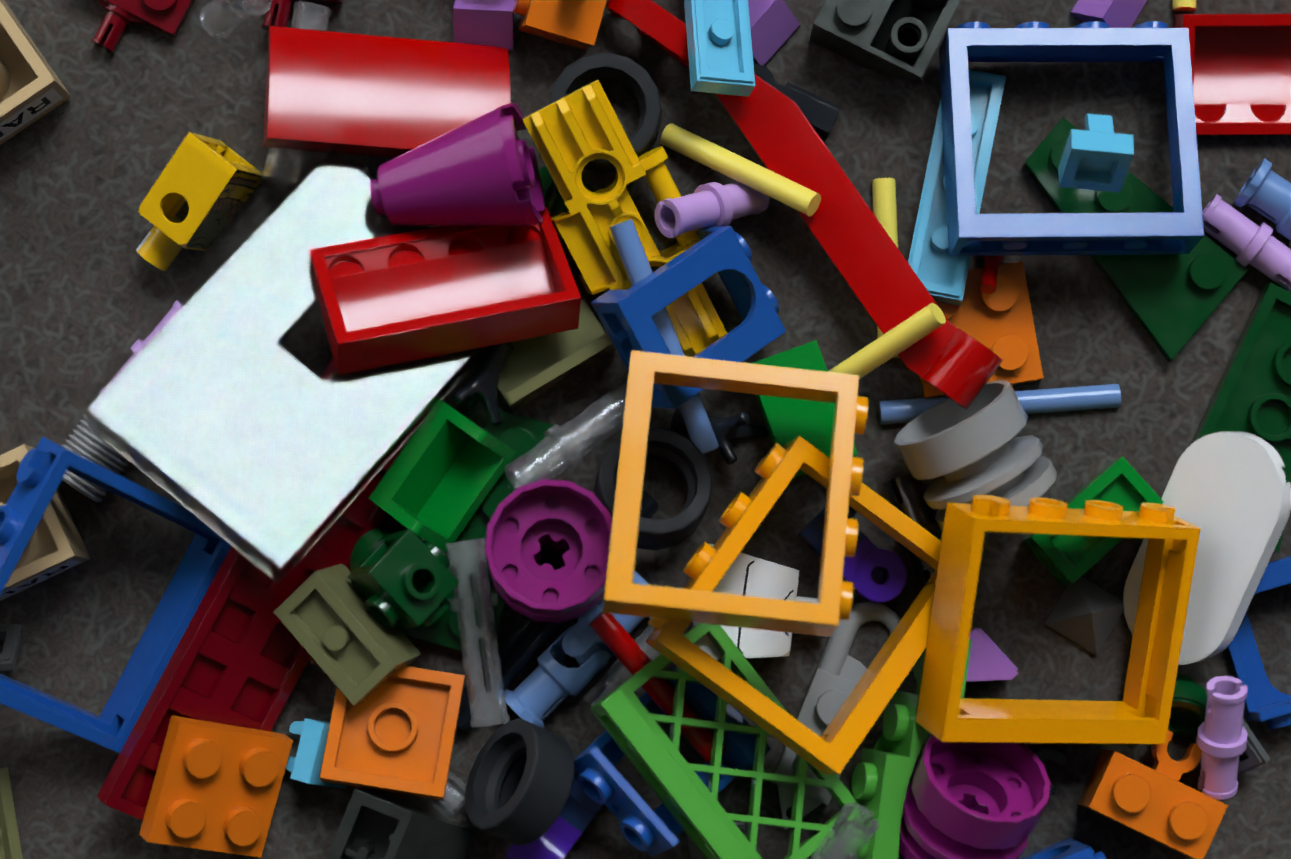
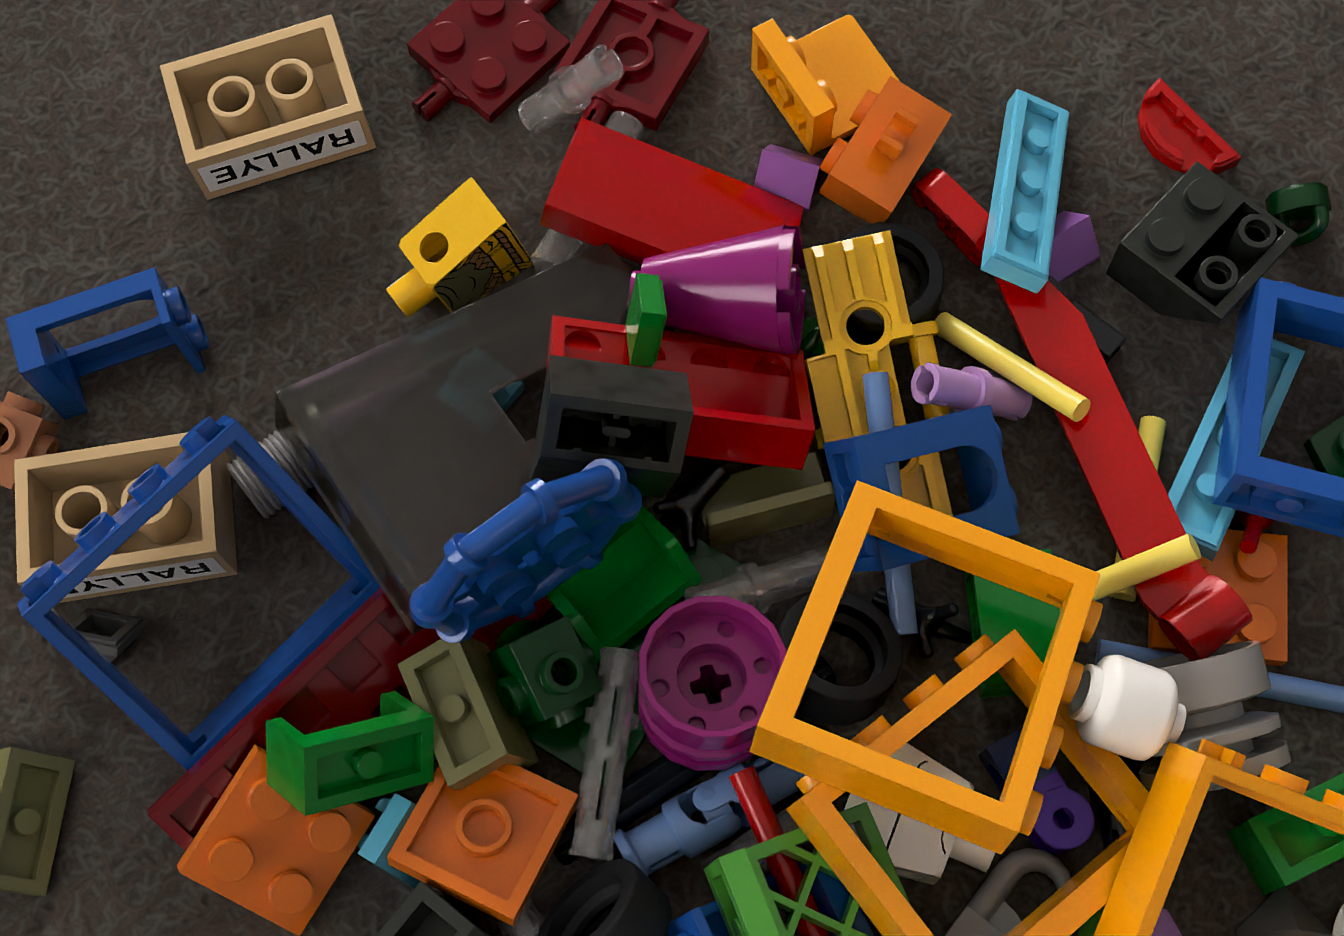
camera: 20 degrees right, 15 degrees down
(267, 710) = (353, 759): none -> green panel
(362, 495) = (525, 550): none -> blue plate
(398, 237) = (645, 320): none -> green tile
(401, 356) = (613, 414): none -> pearl dark grey slope
(907, 483) = (1127, 707): none -> white head

